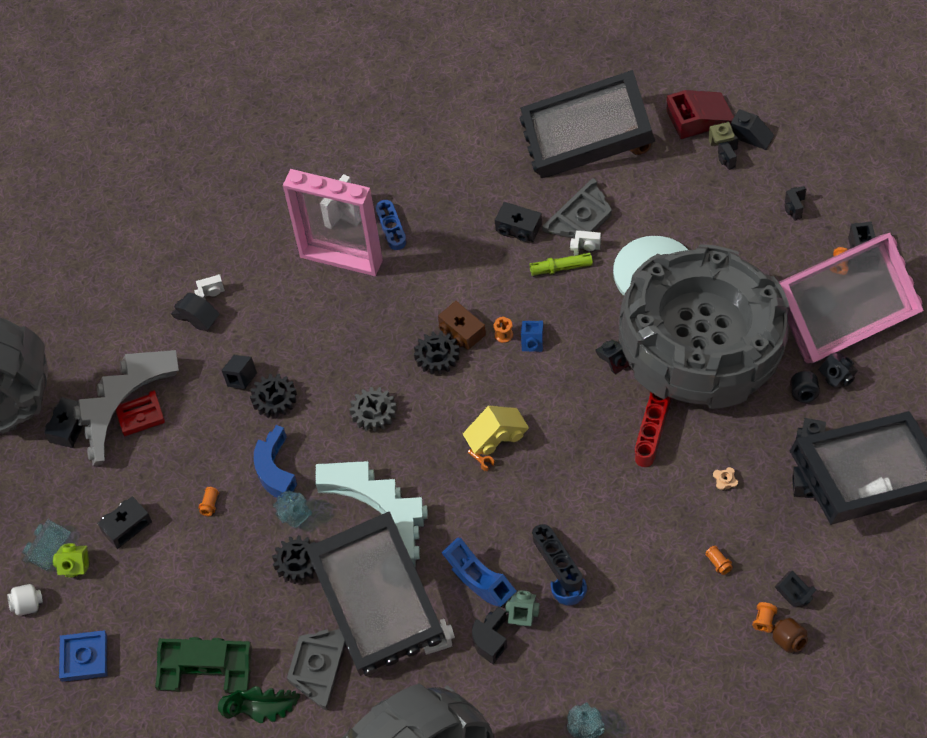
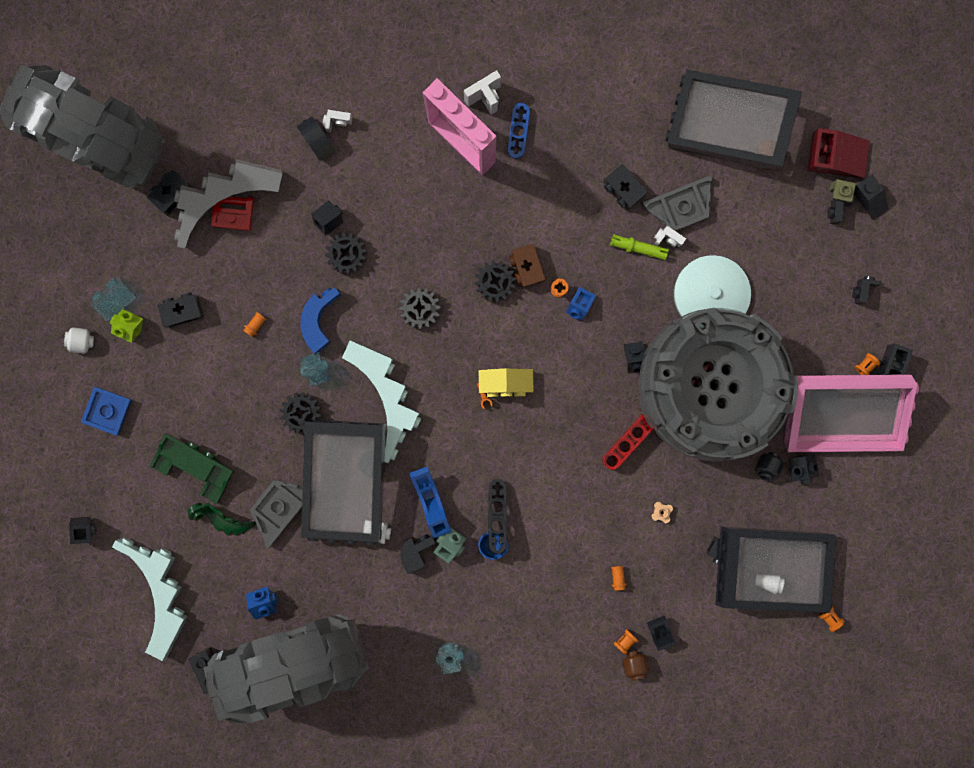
camera: 20 degrees right, 30 degrees up
(811, 427) = (749, 512): black bracket -> none

